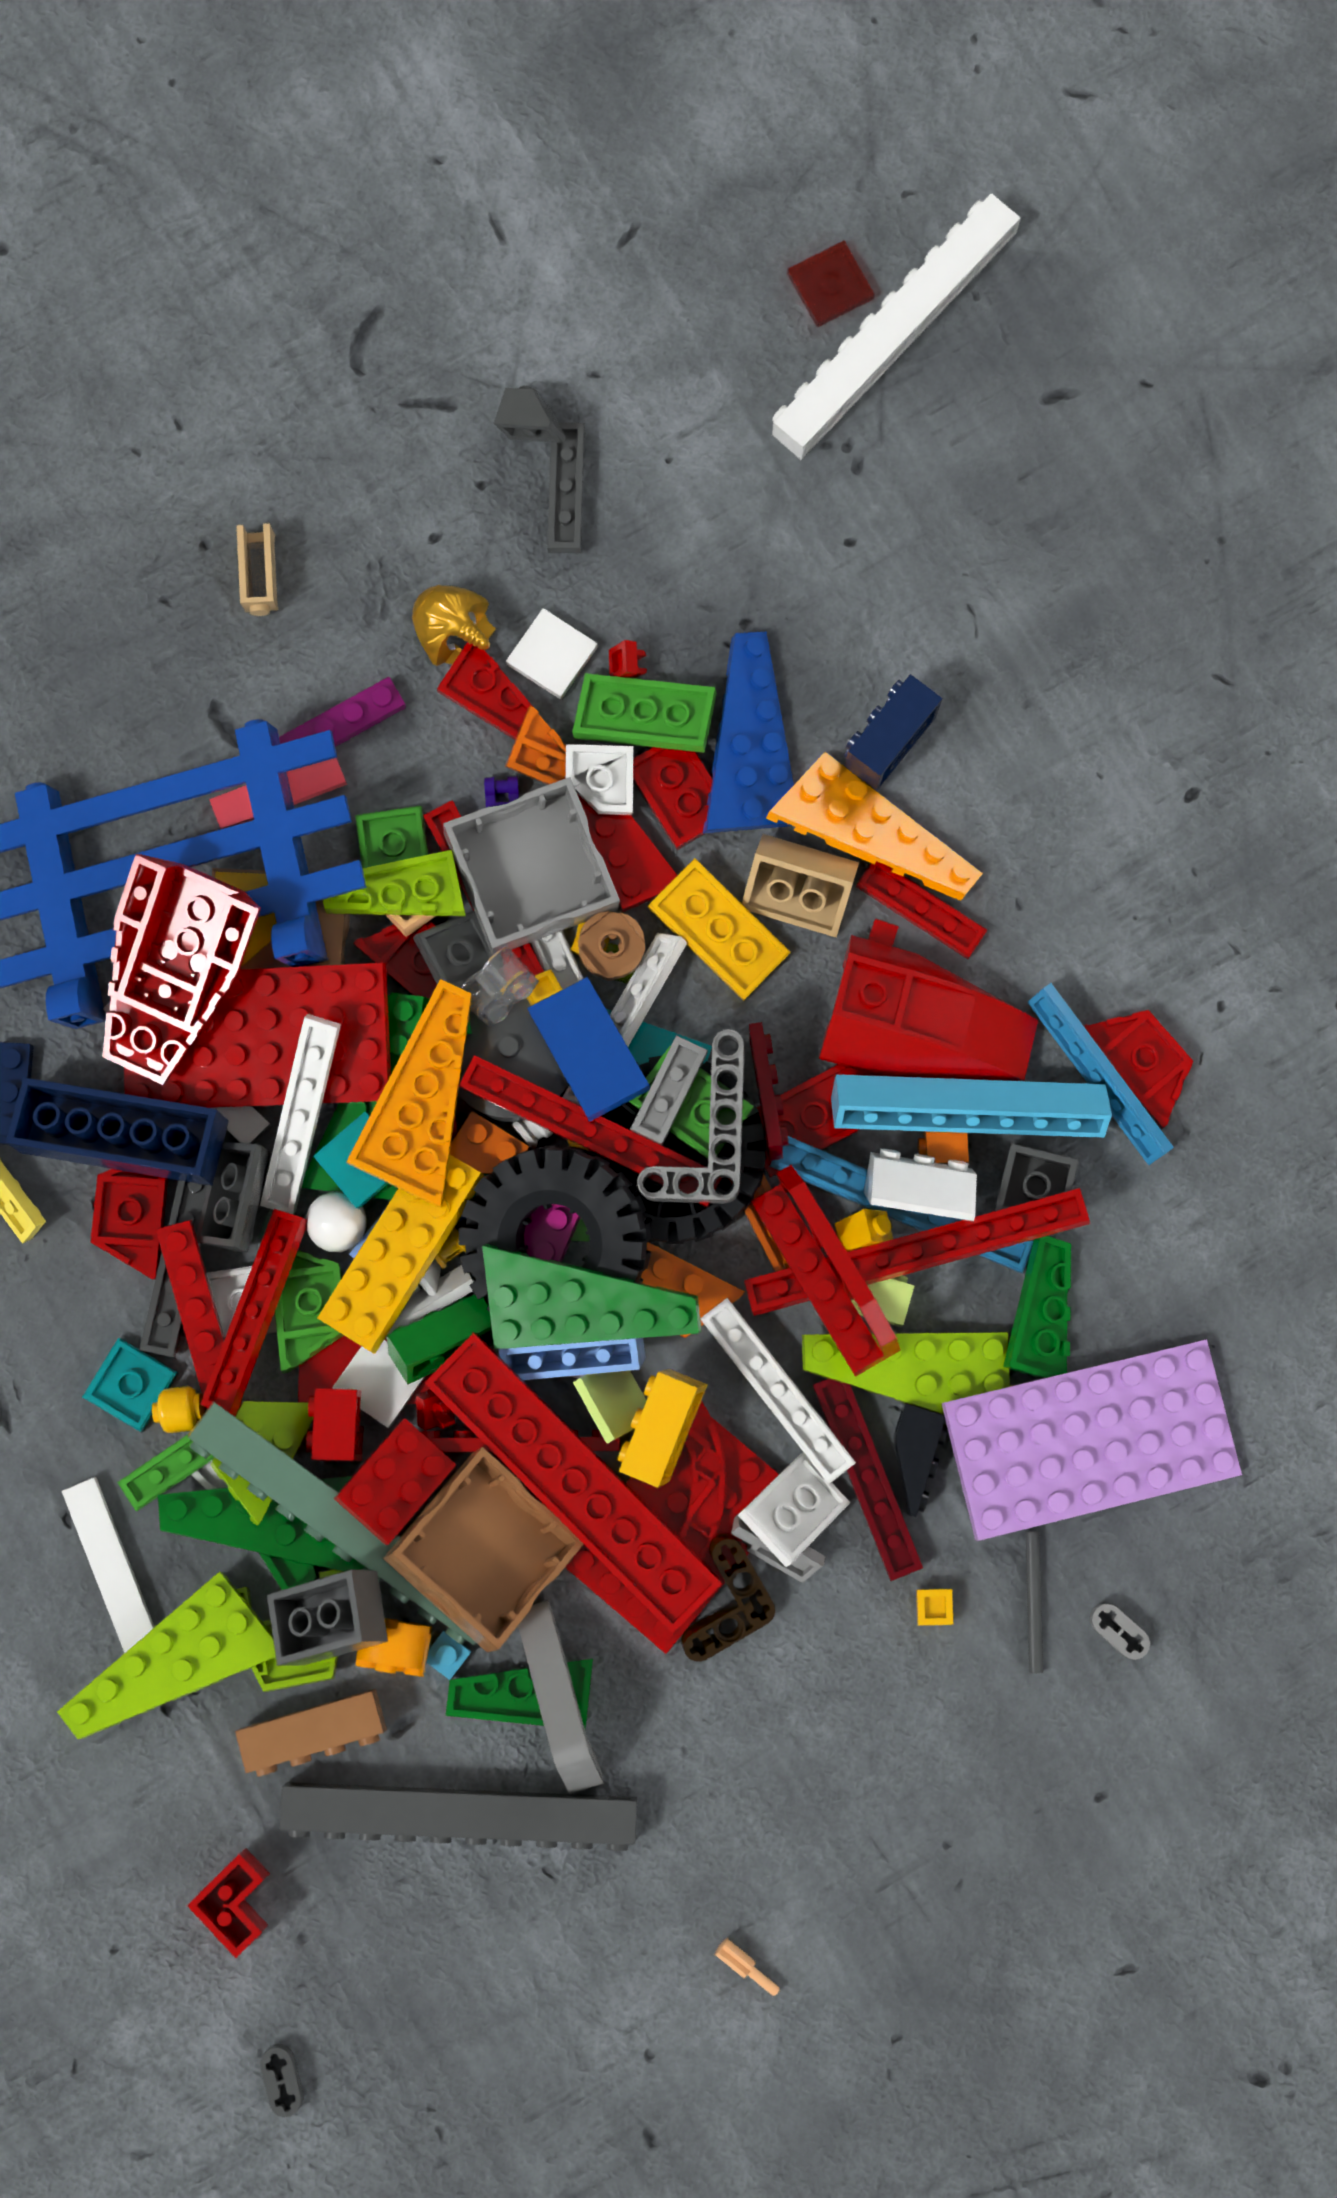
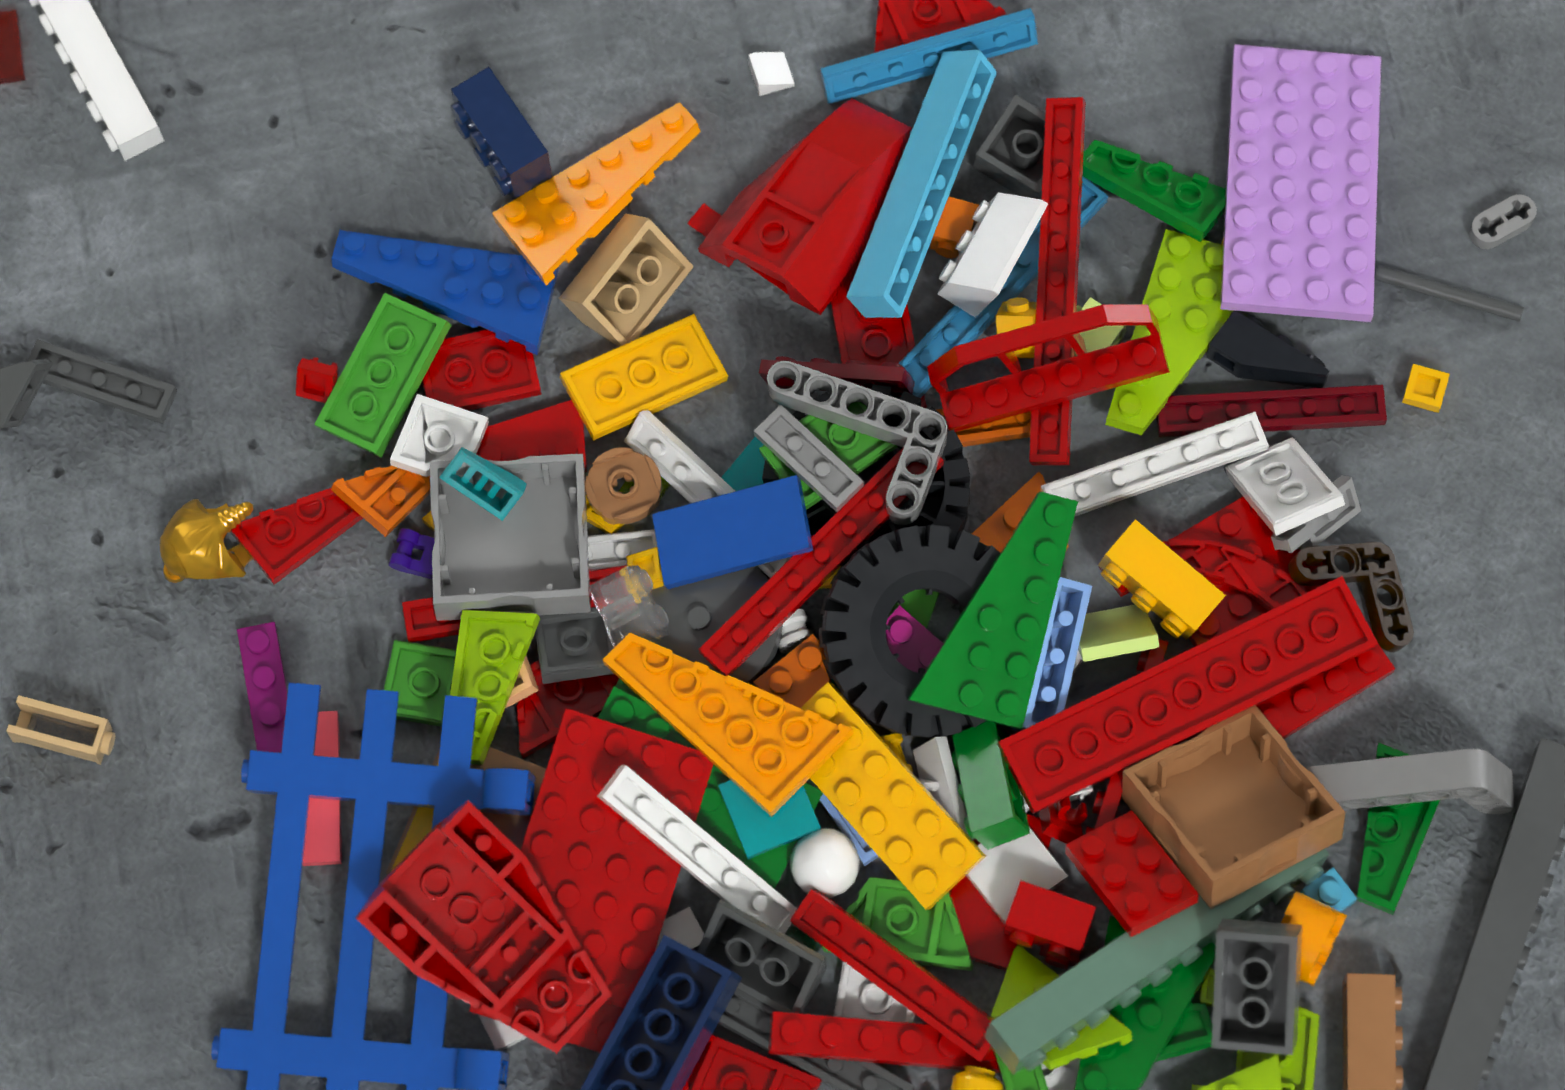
camera: 70 degrees left, 10 degrees down
(552, 653) = (277, 454): white tile -> none
(563, 839) = (486, 499): none -> teal slope
(921, 908) = (695, 172): red tile -> none
(1039, 941) = (770, 71): none -> white slope

